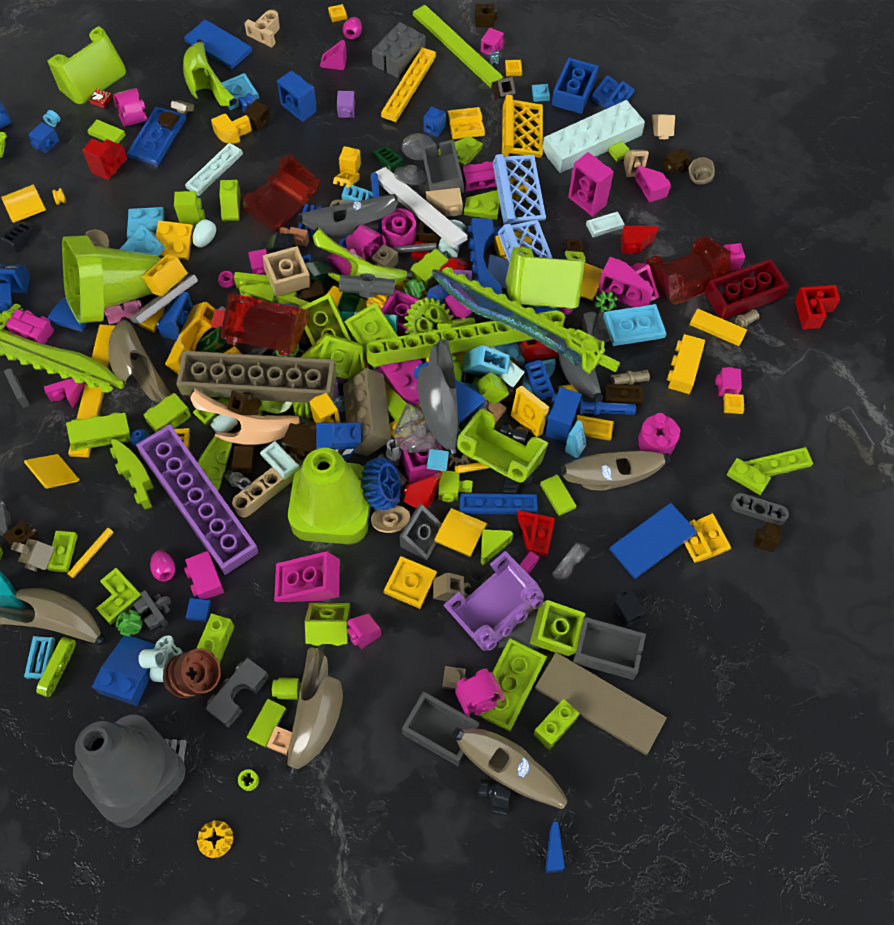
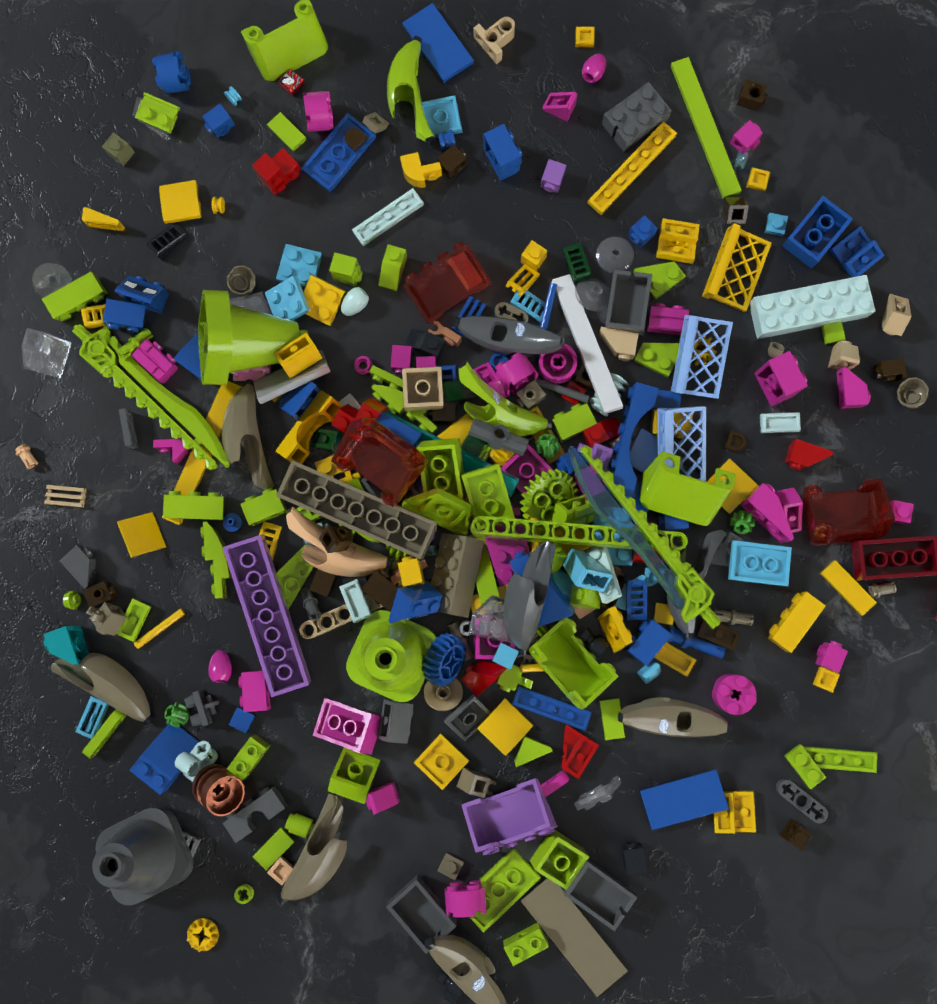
camera: 30 degrees right, 20 degrees up
(122, 596) = (178, 682): lime plate -> none
(353, 557) = (395, 721): none -> dark grey brick

